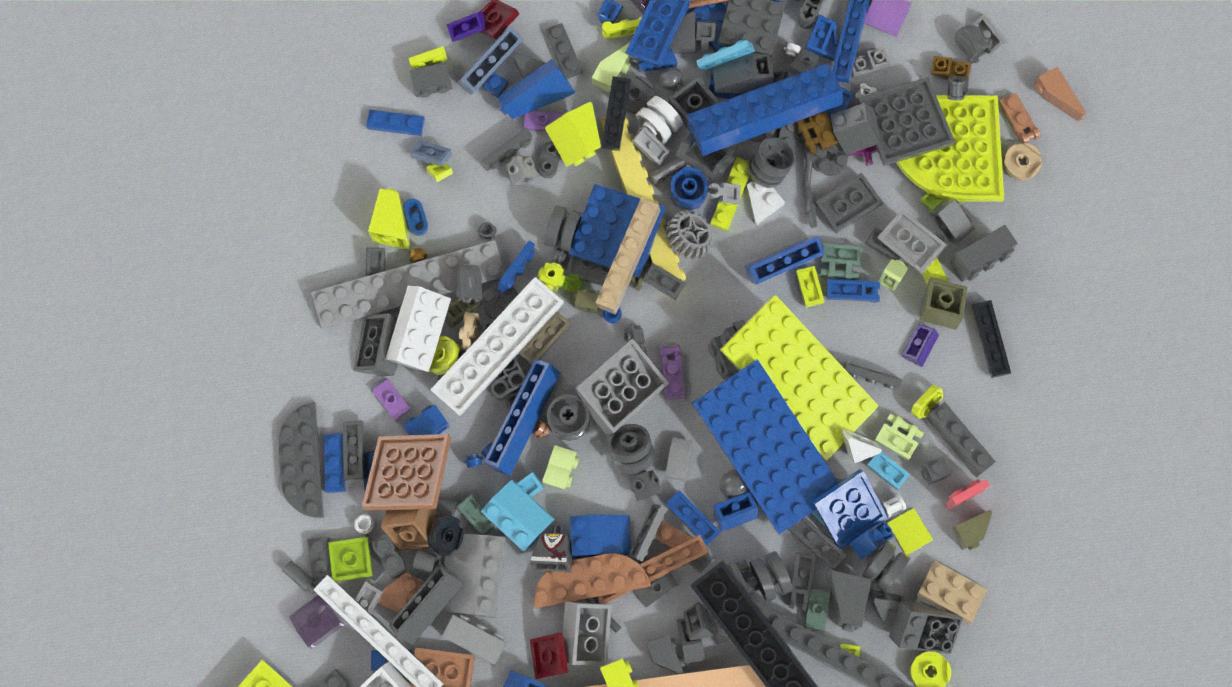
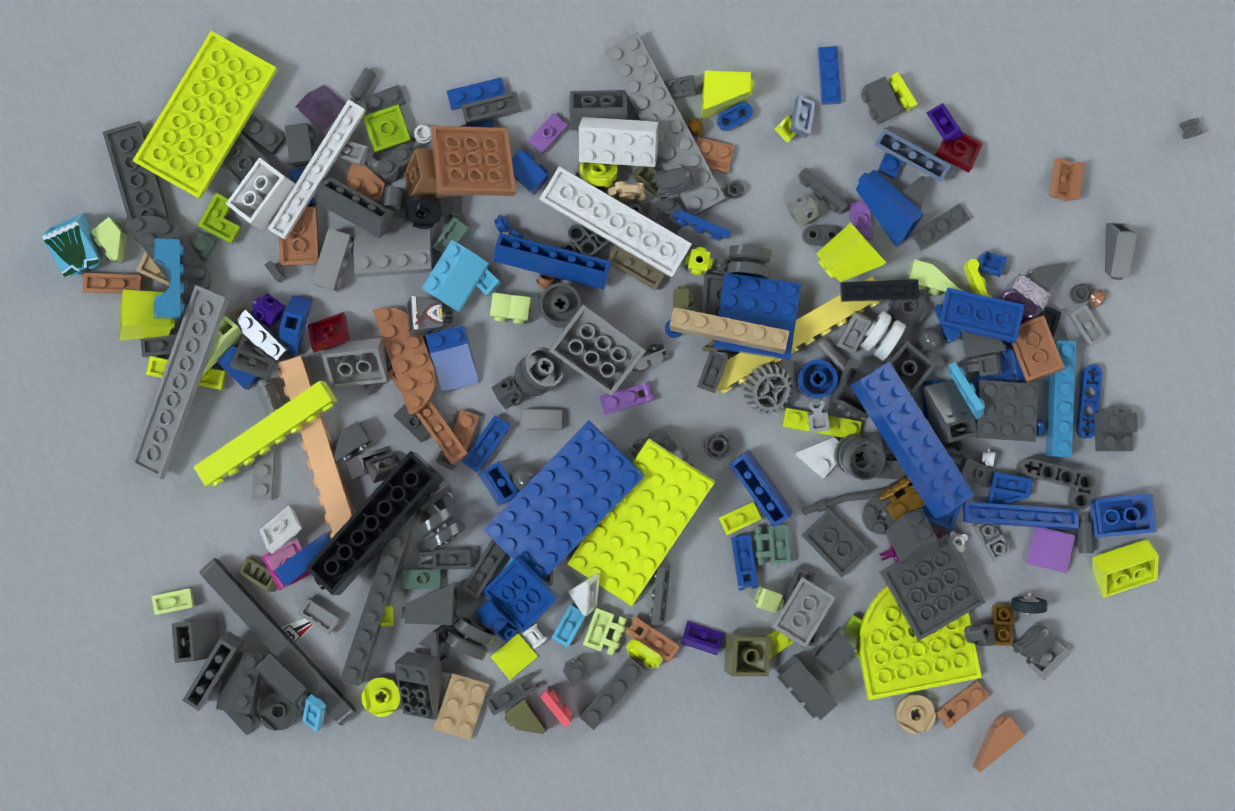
camera: 80 degrees right, 10 degrees up
(301, 461) = (472, 62): dark grey plate -> none
(347, 651) = (300, 143): none -> dark grey brick
(448, 241) = (716, 154): none -> nougat plate
(577, 283) = (692, 285): clear neon green plate -> none
(647, 533) = (463, 403): dark grey plate -> none
(735, 284) = (727, 445): none -> dark grey wheel
(914, 391) = (652, 639): none -> nougat plate
(936, 40) = (1029, 604): none -> black wheel
(947, 540) = (510, 694): none -> dark grey hinge
(991, 339) = (721, 708): black plate -> none

